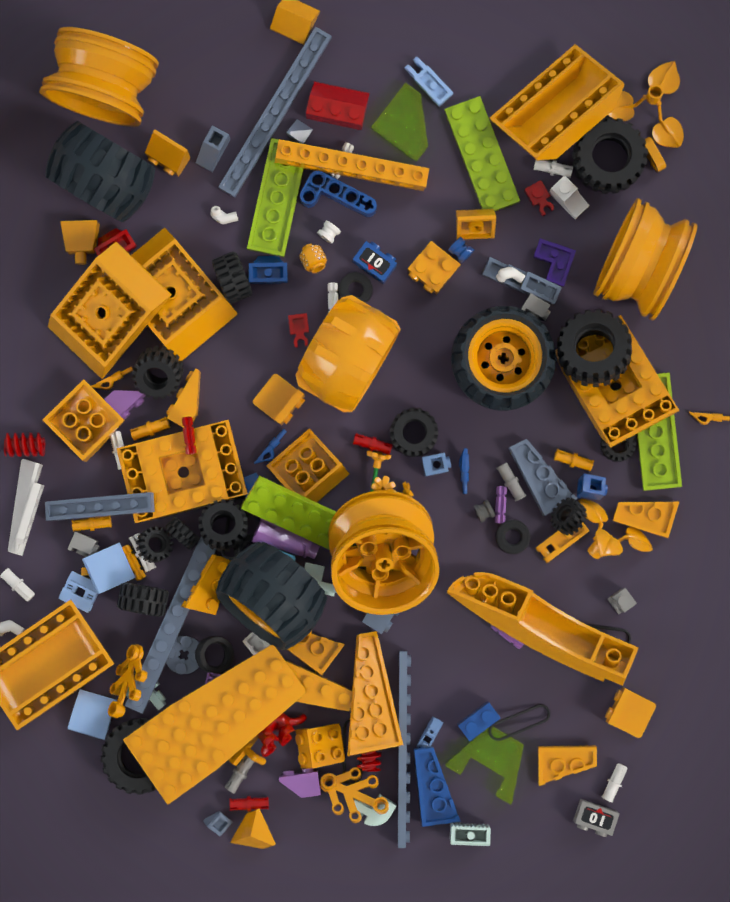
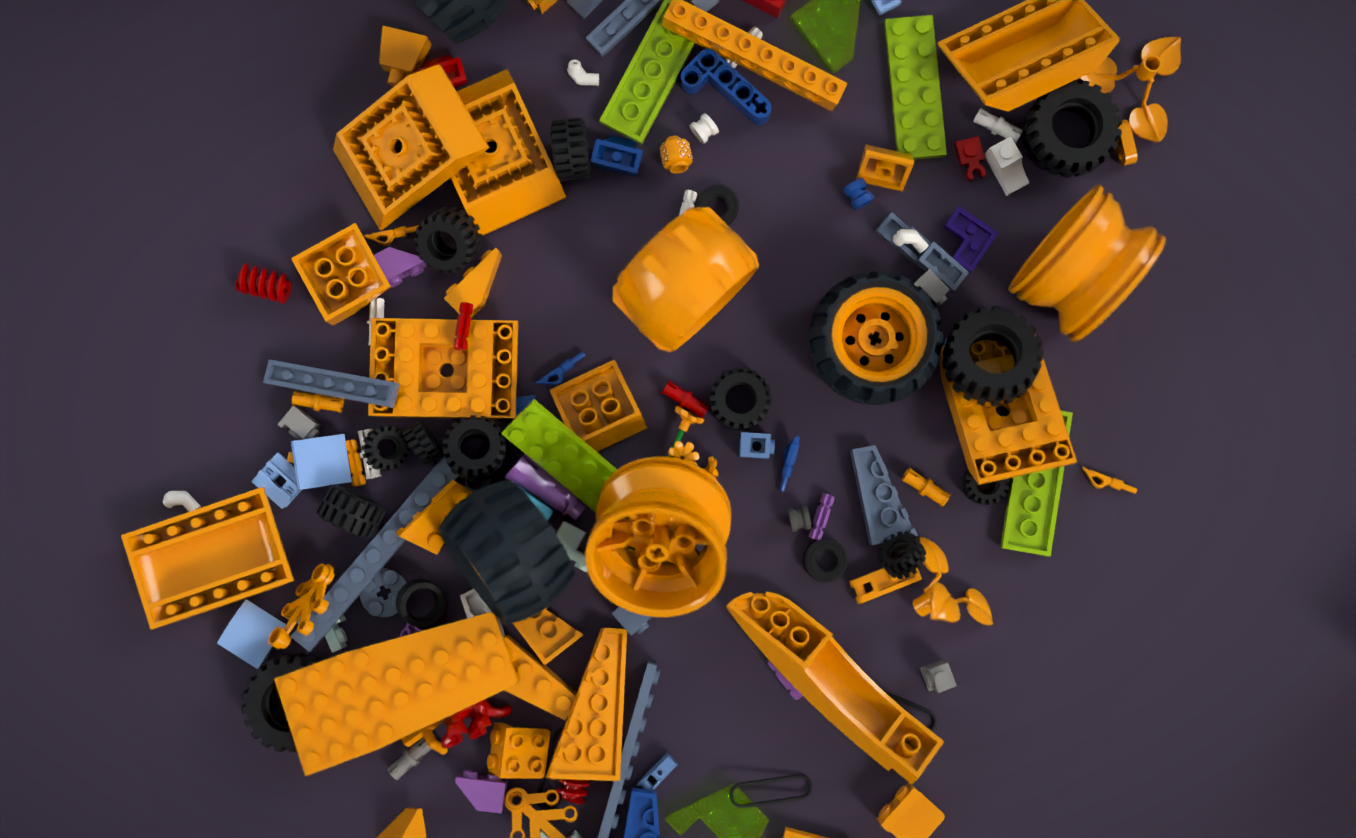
camera: 15 degrees right, 0 degrees up
(17, 585) = (207, 451): white axle -> none
(25, 506) = (247, 356): white wedge -> none
(150, 428) = (421, 306): light orange pin -> none
(218, 823) = (367, 810): sand blue slope -> none
(249, 803) = (411, 797): red pin -> none
(279, 399) = (587, 314): light orange bracket -> none
(299, 326) = (635, 232): red plate -> none
(375, 262) = (749, 179): brick -> none
(433, 268) = (818, 207): light orange plate -> none
(478, 721) = (721, 775): blue brick -> none
(511, 481) = (842, 492): light grey pin -> none
(596, 482) = (937, 518): blue brick -> none
(647, 516) = (997, 581): light orange wing -> none

